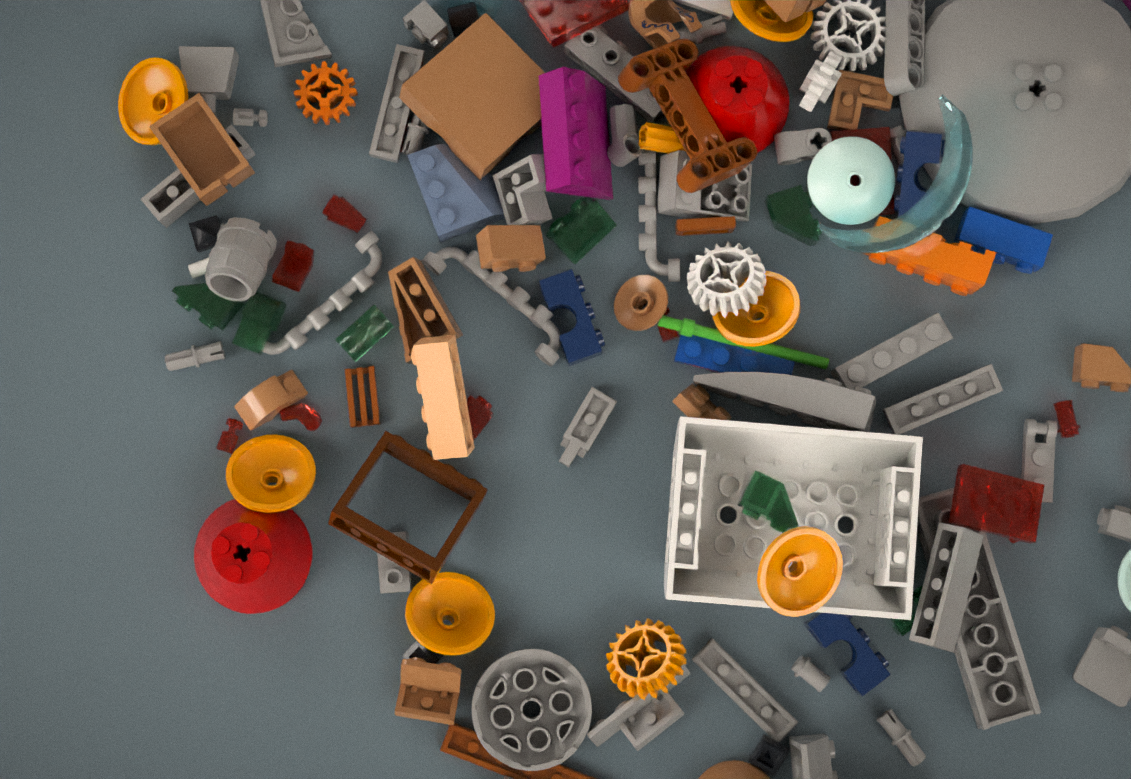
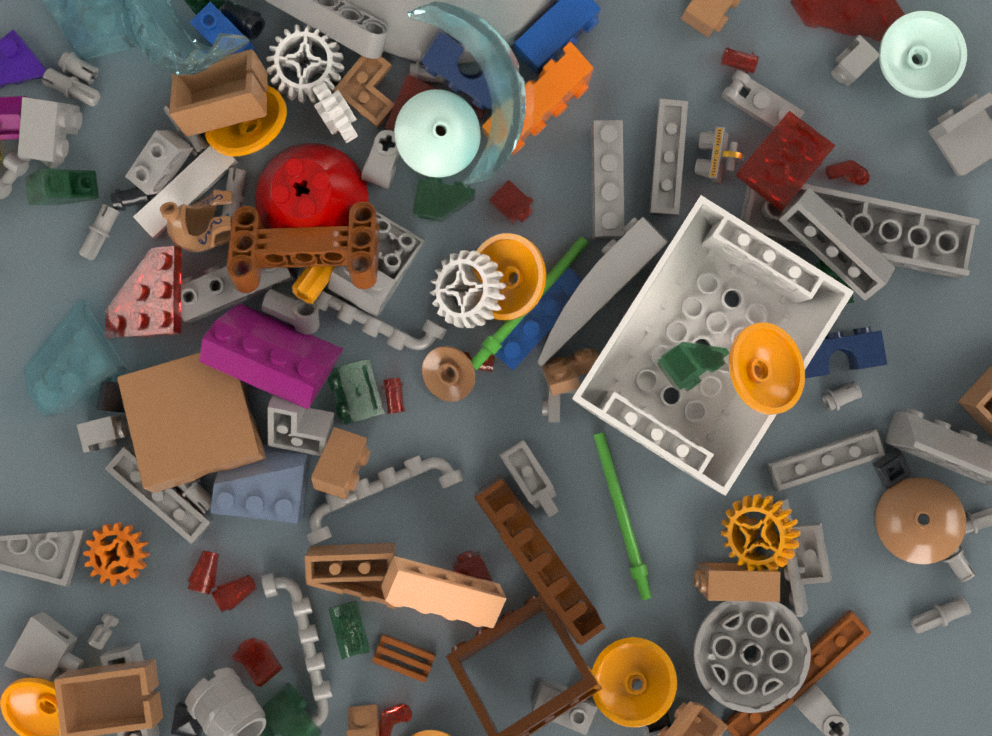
camera: 60 degrees left, 5 degrees up
(347, 179) = (204, 573): none -> clear red cone
(519, 464) = (539, 560): none -> reddish brown window
(553, 568) = (637, 569): none -> bright green bar
(564, 292) = (404, 434): dark blue arch -> none
(591, 660) = (735, 583): none -> medium nougat window
(595, 264) = (394, 395): none -> clear red pin
(662, 410) = (551, 406): none -> light grey bracket
(705, 226) = (410, 281): dark orange tile -> none
(825, 281) = (512, 203): none -> clear red bracket
(901, 737) = (934, 348): light grey axle -> none
(970, 447) = (717, 143): none -> light grey hips
(1021, 573) = (850, 170): none -> clear red arm

